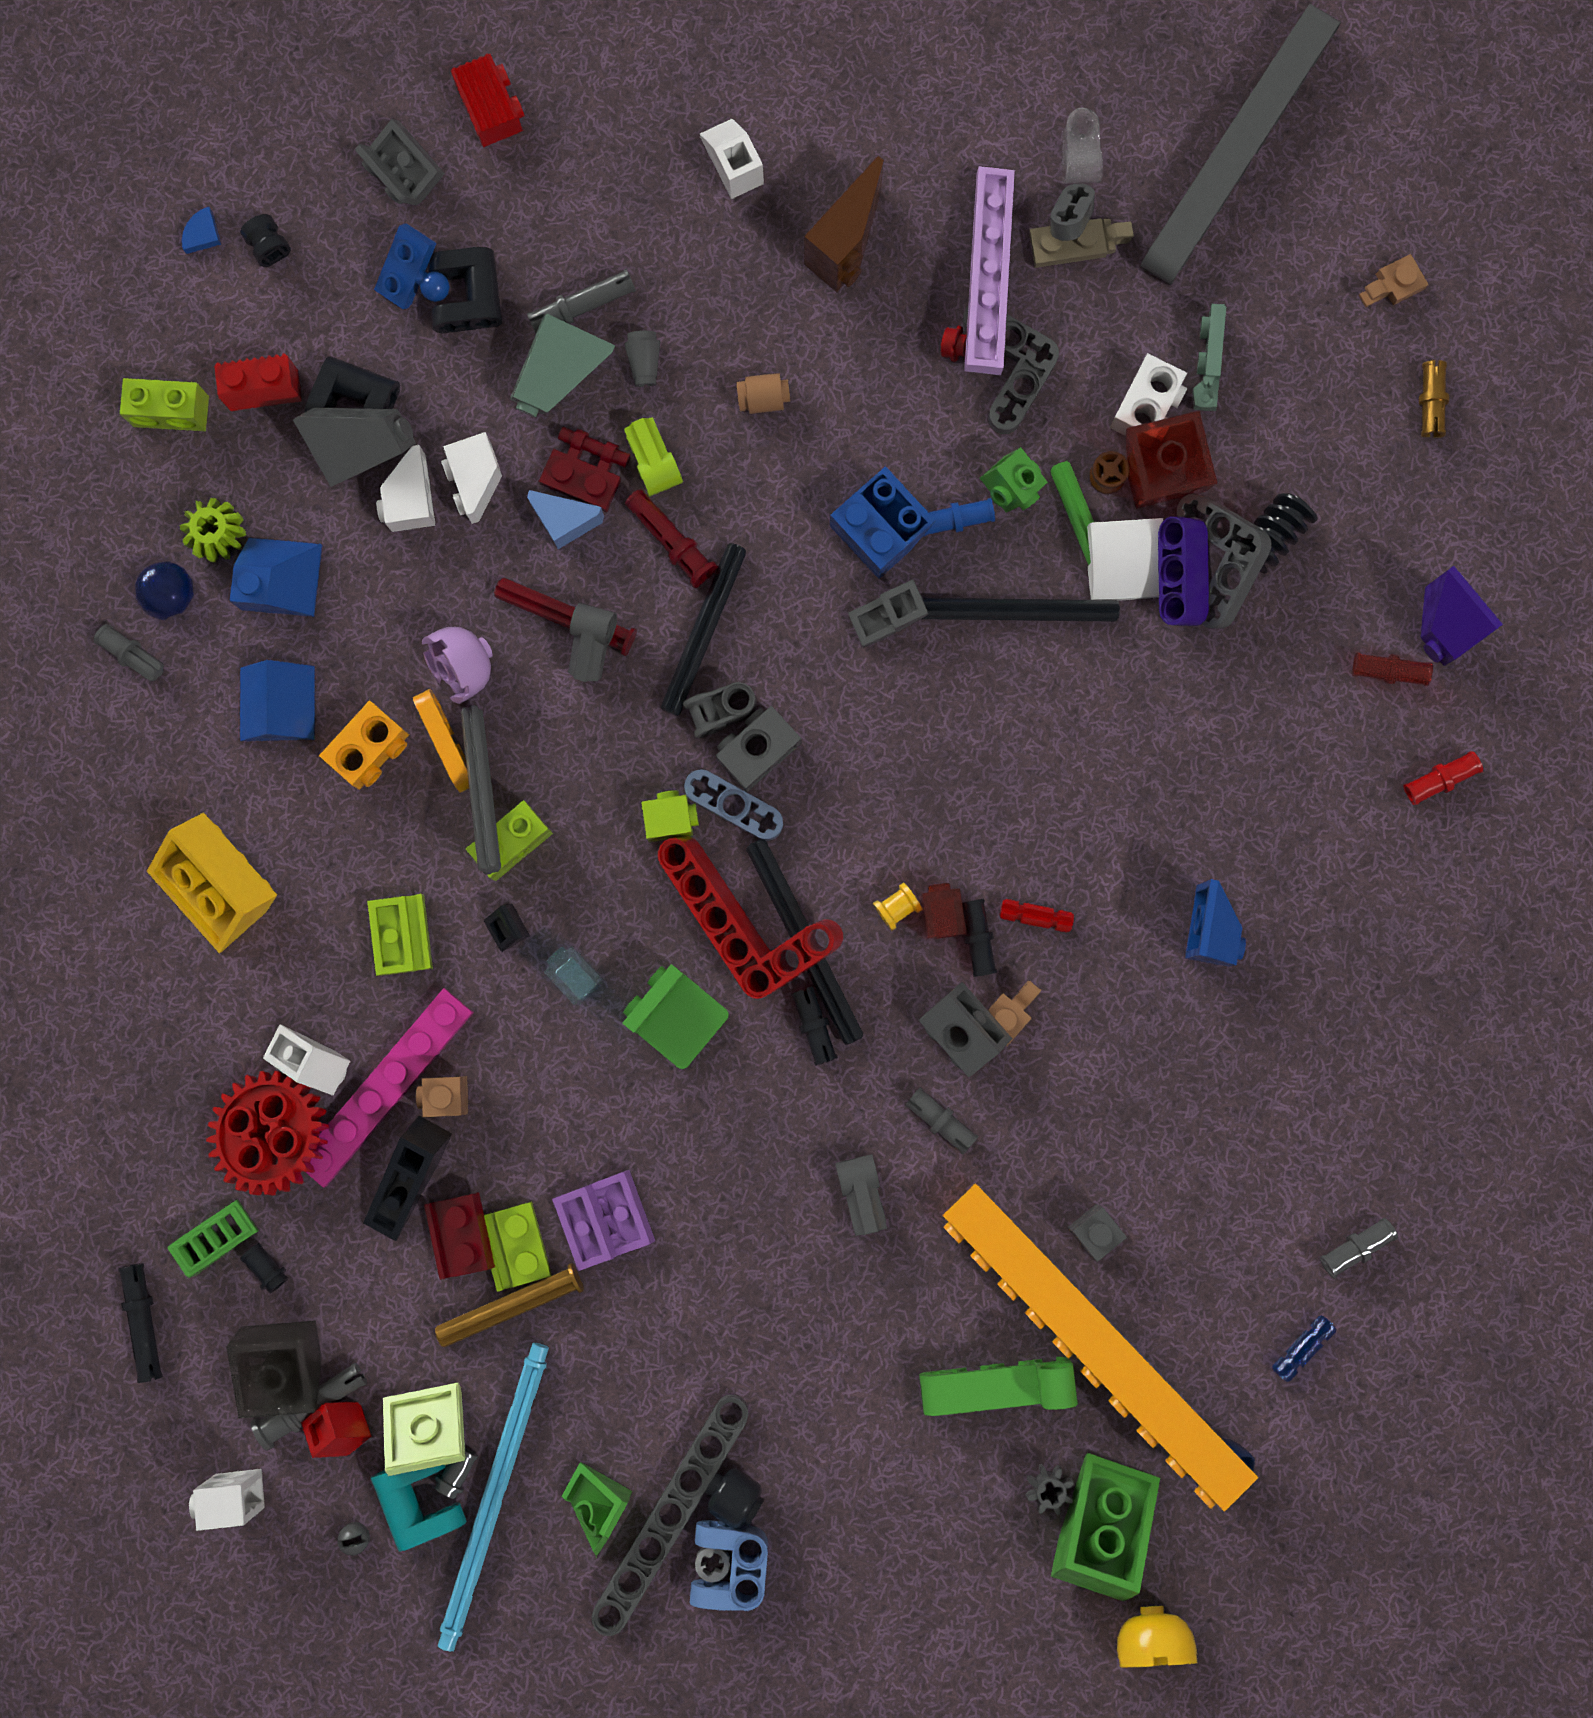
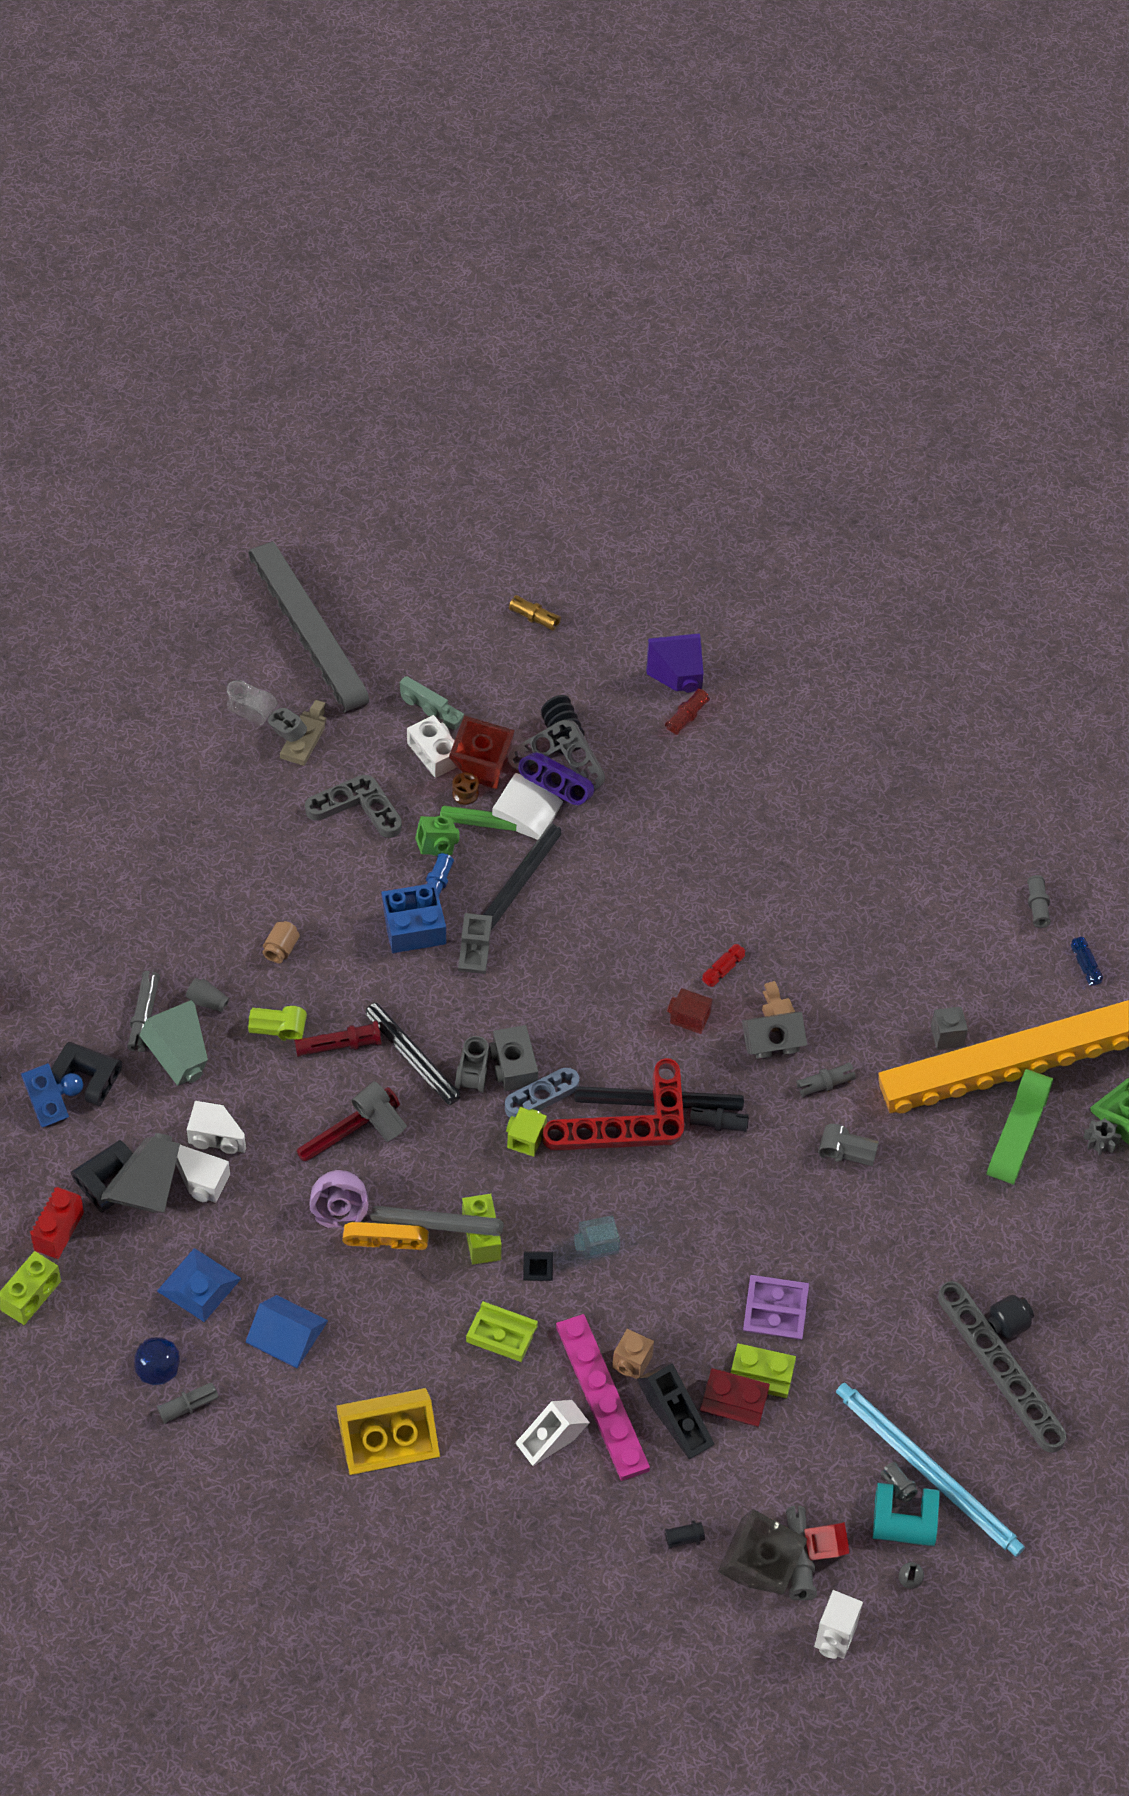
camera: 65 degrees left, 30 degrees down
(140, 1322) = (669, 1634): black pin -> none
(185, 1259) = (644, 1581): bright green slope -> none
(212, 543) = (150, 1306): lime gear -> none
(267, 1133) = (585, 1505): red gear -> none
(357, 738) = (353, 1286): light orange brick -> none
(423, 1429) = (858, 1481): yellowish green plate -> none
(509, 1306) = (802, 1391): pearl gold axle -> none
(564, 517) = (280, 1093): medium blue slope -> none
(580, 479) = (259, 1074): dark red plate -> none
(597, 1503) = (973, 1404): bright green slope -> none
(675, 1016) = (662, 1194): bright green bracket -> none
(716, 1574) = (1046, 1365): light grey bush -> none
(725, 1594) = (1058, 1338): medium blue piece -> none
(733, 157) = (113, 878): white slope -> none
(840, 237) = (215, 839): reddish brown slope -> none
(897, 906) = (669, 1033): yellow bush -> none
(953, 343) = (324, 826): red plate -> none
(978, 938) = (722, 1002): black pin -> none
(989, 271) = (293, 782): lavender plate -> none
(1214, 927) = (789, 872): blue slope -> none
(1396, 281) = (449, 594): medium nougat plate -> none
(1443, 778) = (771, 719): red pin -> none

